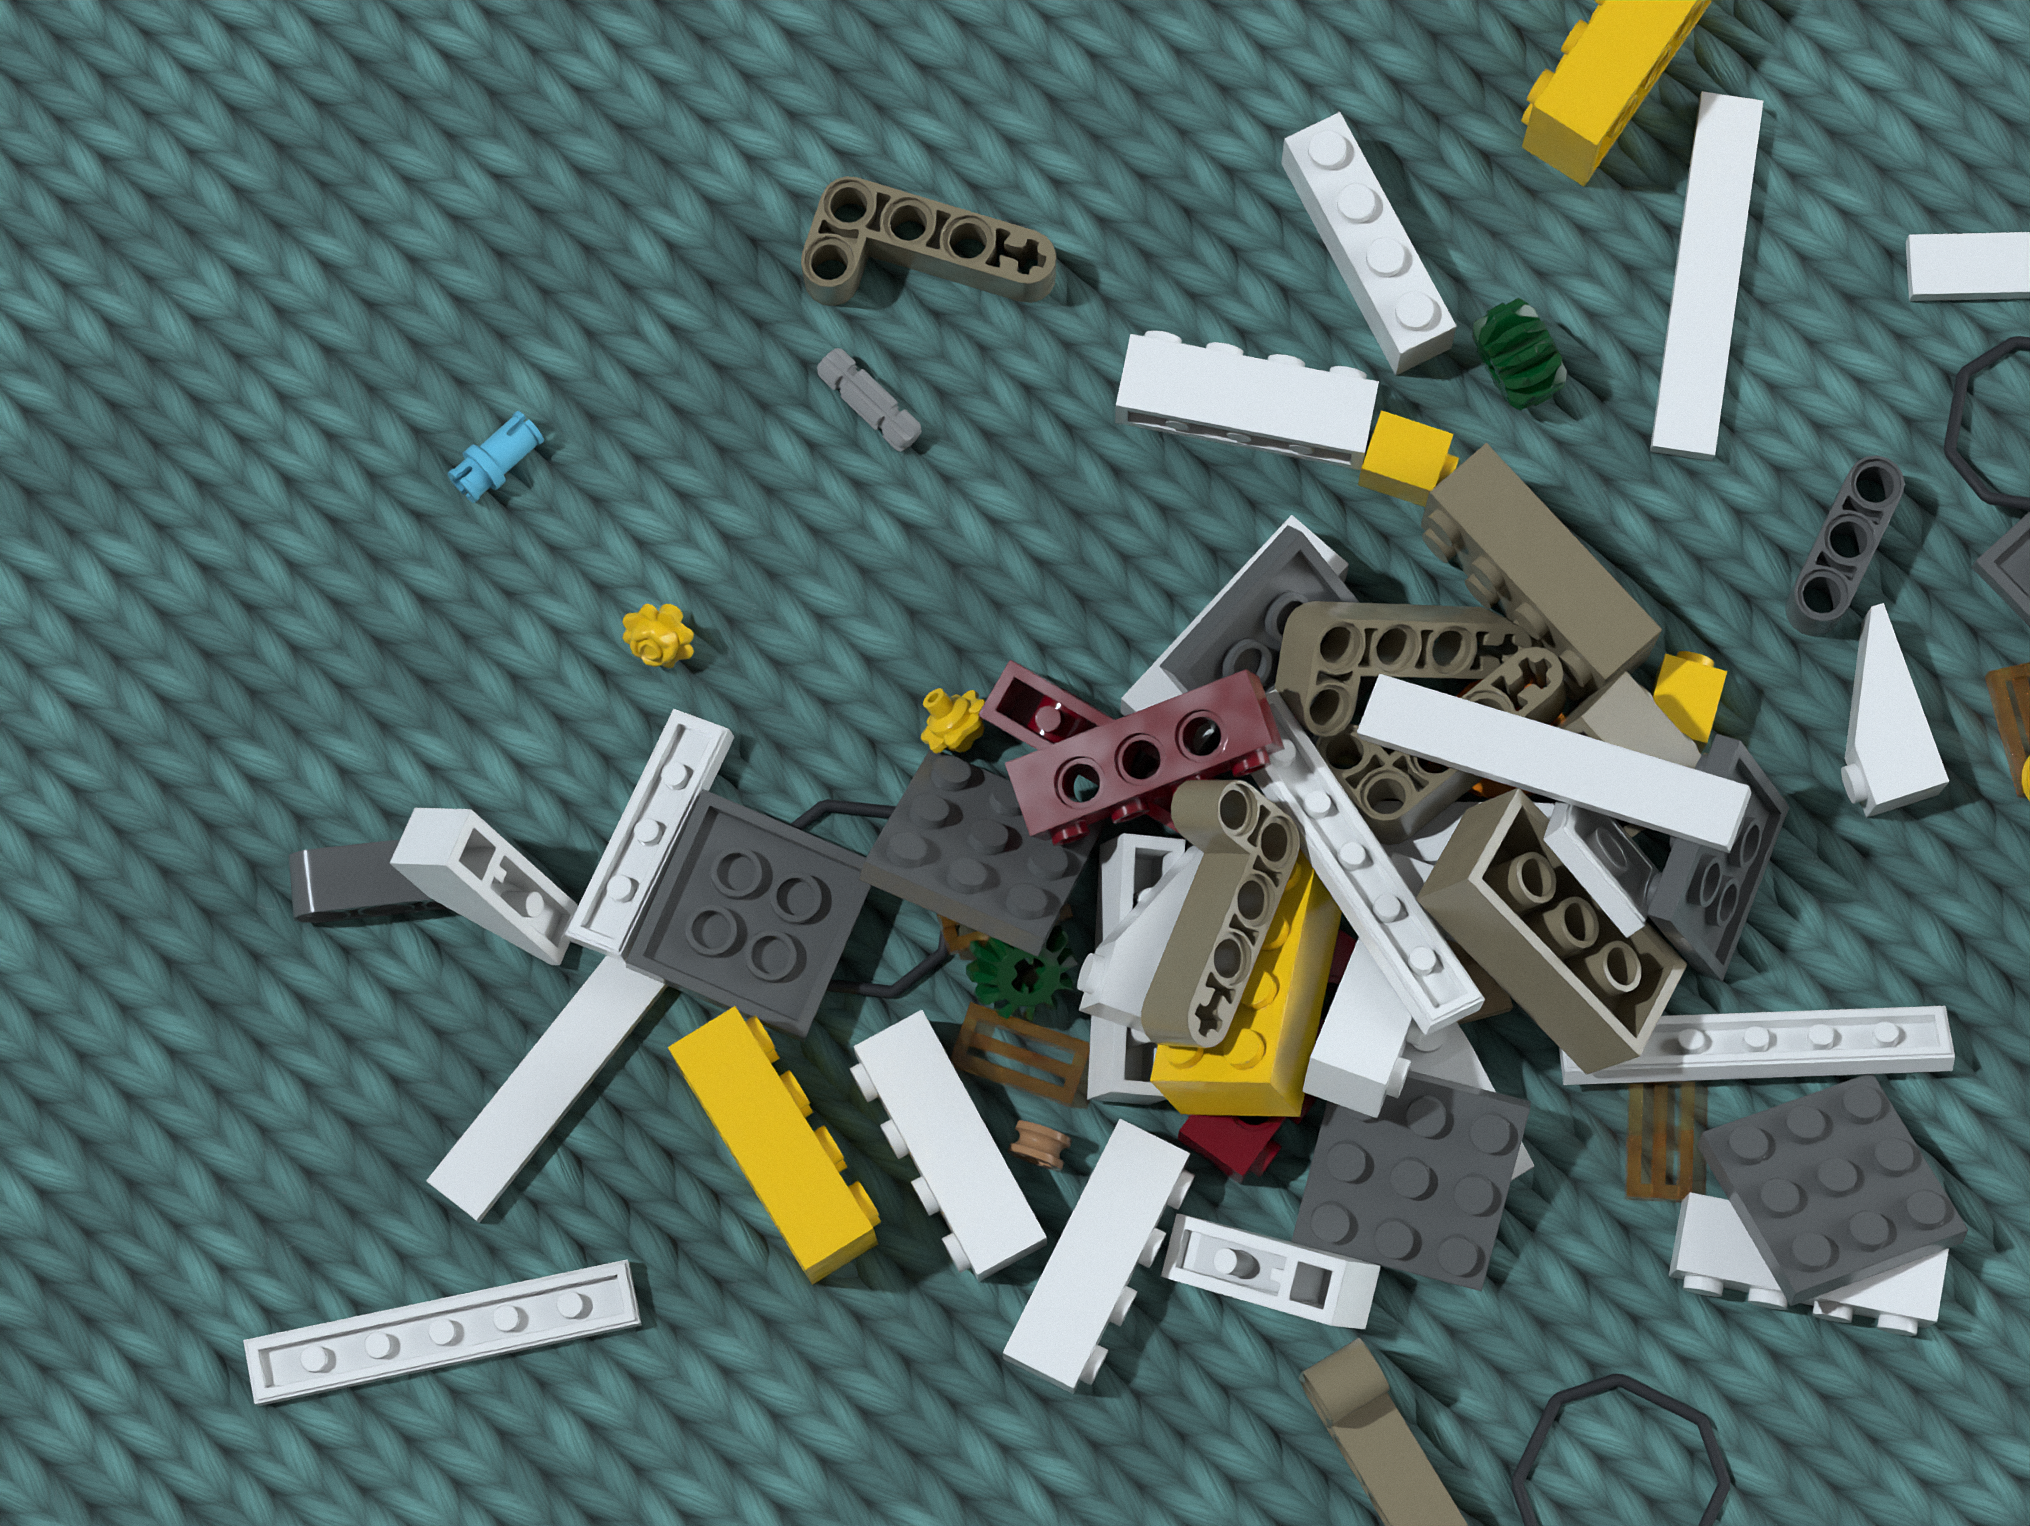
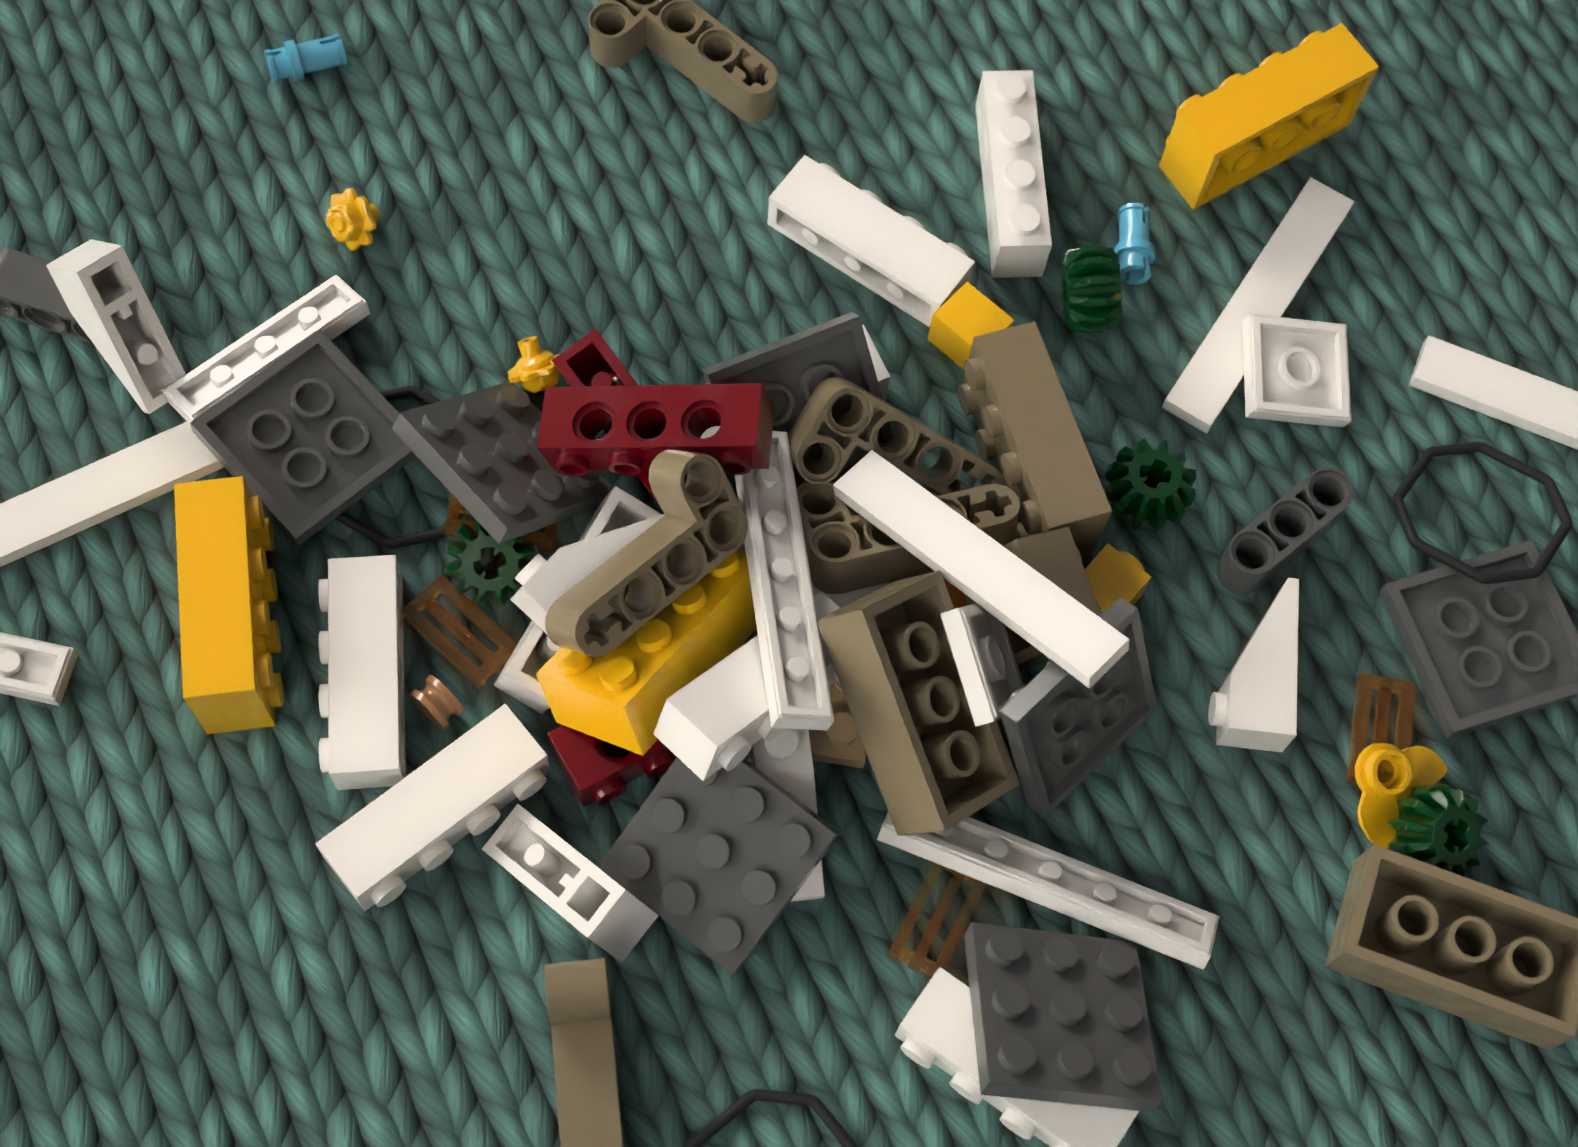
camera: 15 degrees right, 10 degrees down
(869, 399) = (594, 132): light grey axle -> none
(1542, 275) = (1134, 249): none -> medium azure pin
(1703, 568) = (1159, 468): none -> dark green gear
(1781, 345) = (1296, 370): none -> white tile

